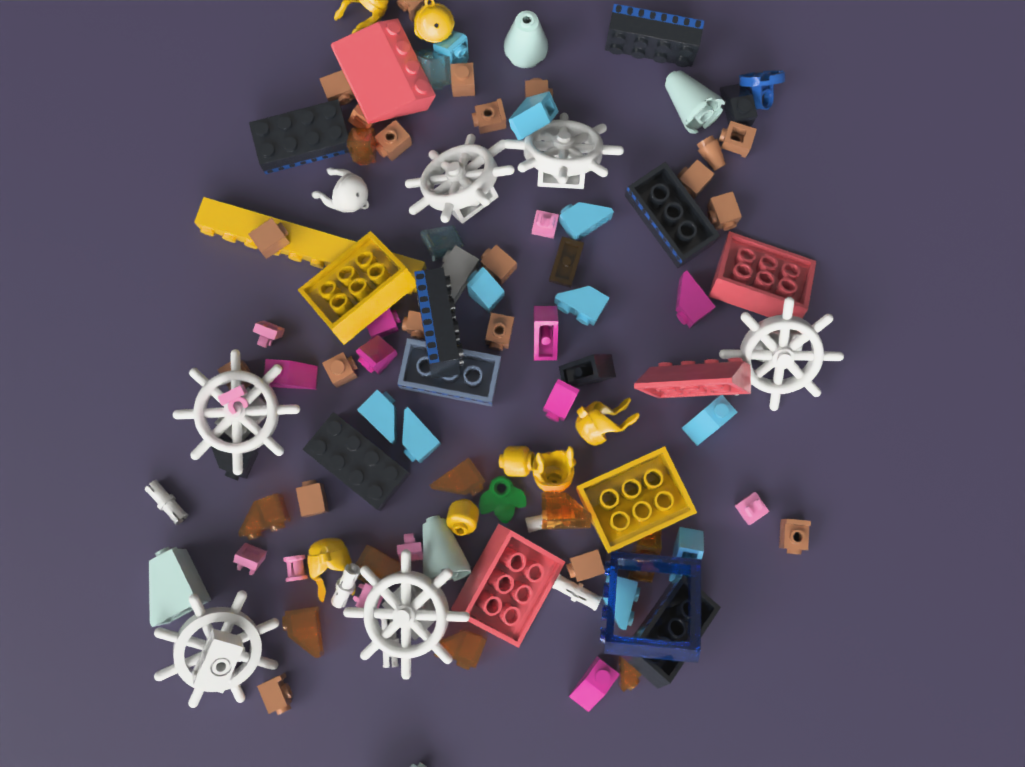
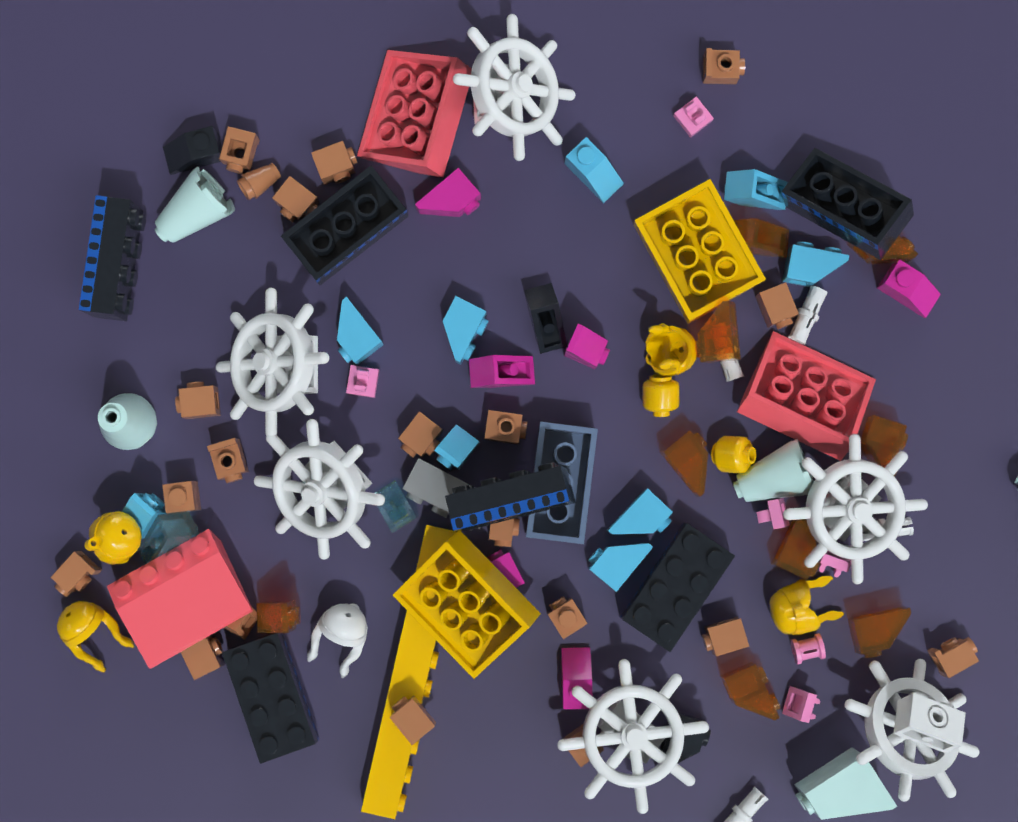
camera: 95 degrees left, 5 degrees up
(233, 396) = (619, 739): bright pink tile -> none
(268, 333) = (525, 712): bright pink tile -> none
(345, 585) = (825, 585): white pin -> none
(376, 355) = (546, 574): dark pink slope -> none
(392, 141) = (268, 580): nougat brick -> none
(502, 503) = (710, 410): green plate -> none
(533, 114) = (232, 402): medium azure slope -> none
(566, 262) = (410, 351): dark brown plate -> none
(593, 423) = (615, 304): yellow hair -> none
(653, 648) = (877, 232): clear blue window -> none
(696, 379) = (552, 186): coral slope -> none
(761, 85) = (167, 121): blue tile -> none

